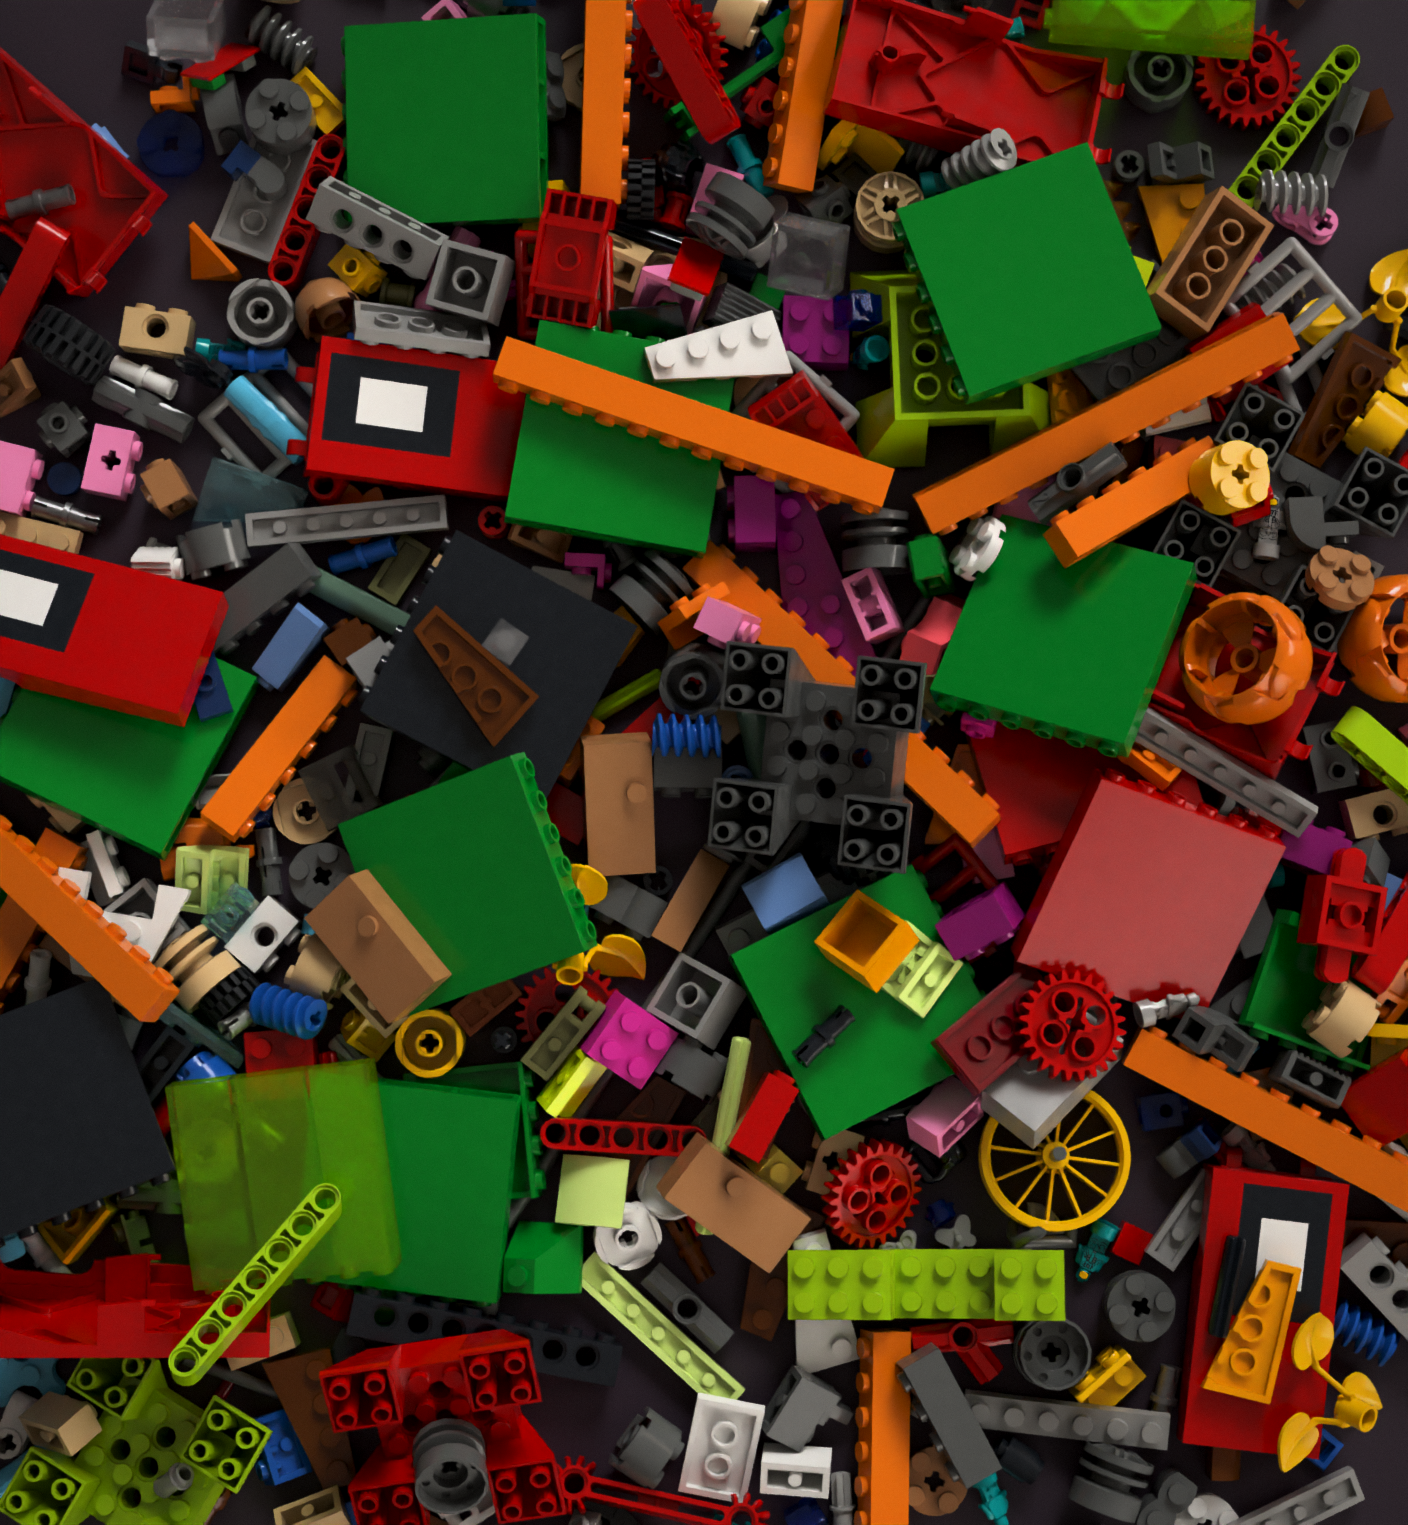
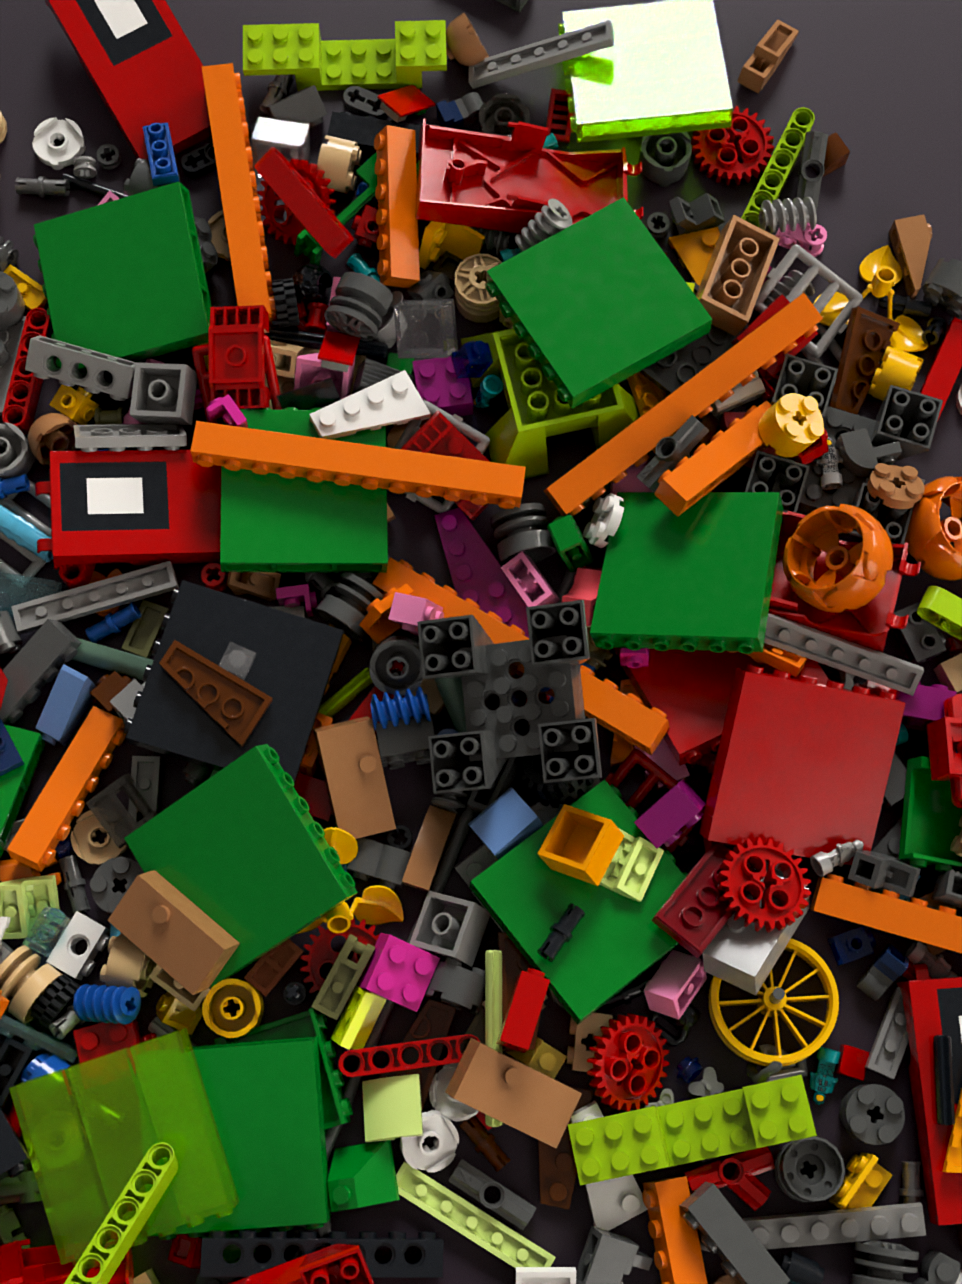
camera: 10 degrees left, 10 degrees down
(551, 334) = (228, 410): none -> dark pink bracket
(754, 514) = (421, 529): magenta brick -> none

